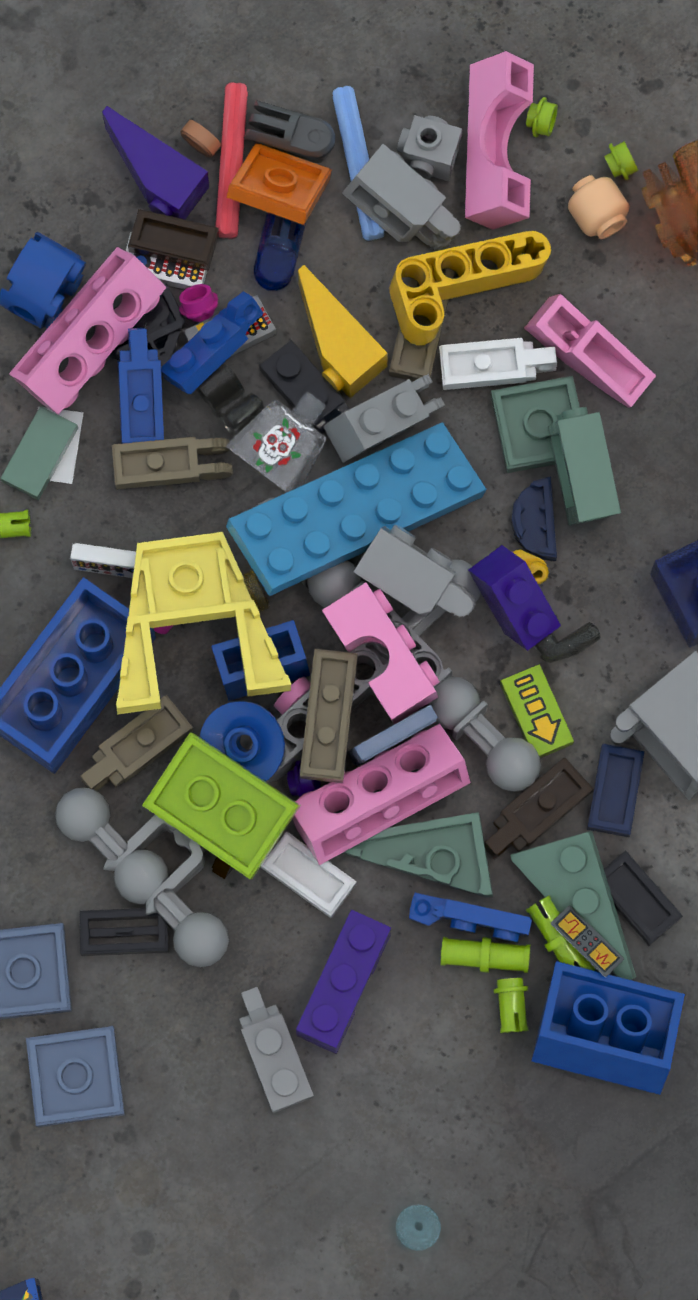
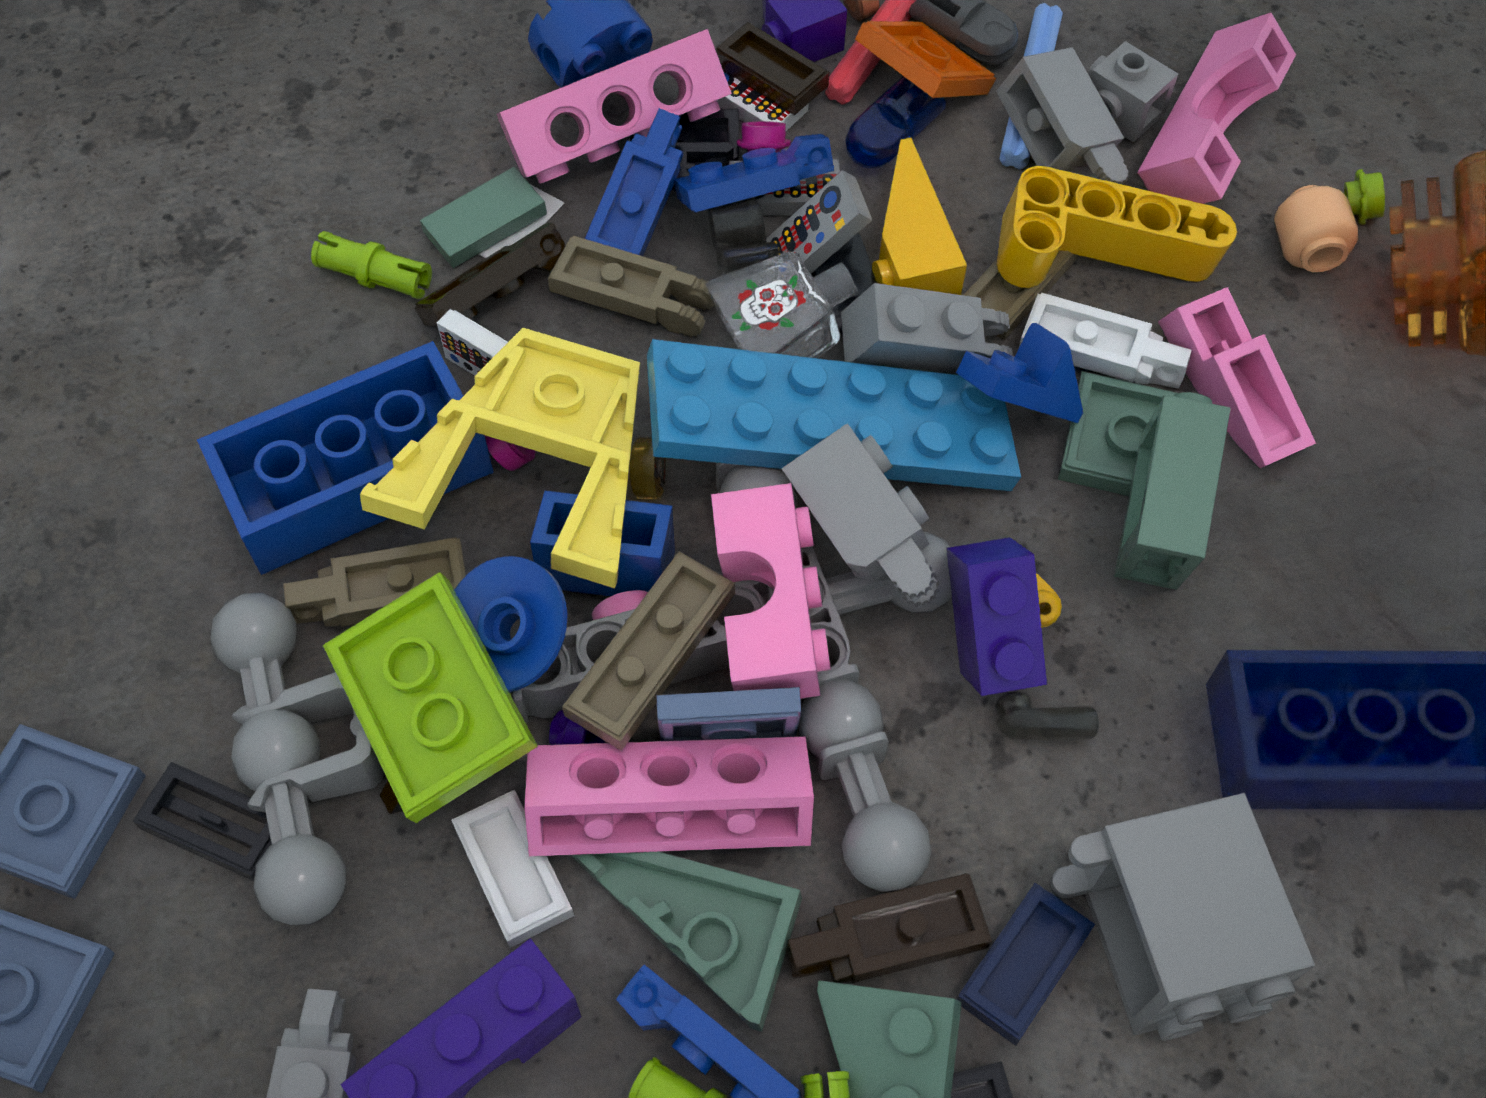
camera: 25 degrees right, 15 degrees down
(74, 501) = (494, 275): none -> dark brown hinge
(277, 366) = (824, 222): none -> light grey tile
(464, 426) = (1036, 378): none -> blue slope
(534, 520) = (1069, 547): dark blue tile -> none
(536, 711) = (958, 794): lime tile -> none
(542, 117) = (1281, 119): lime plate -> none

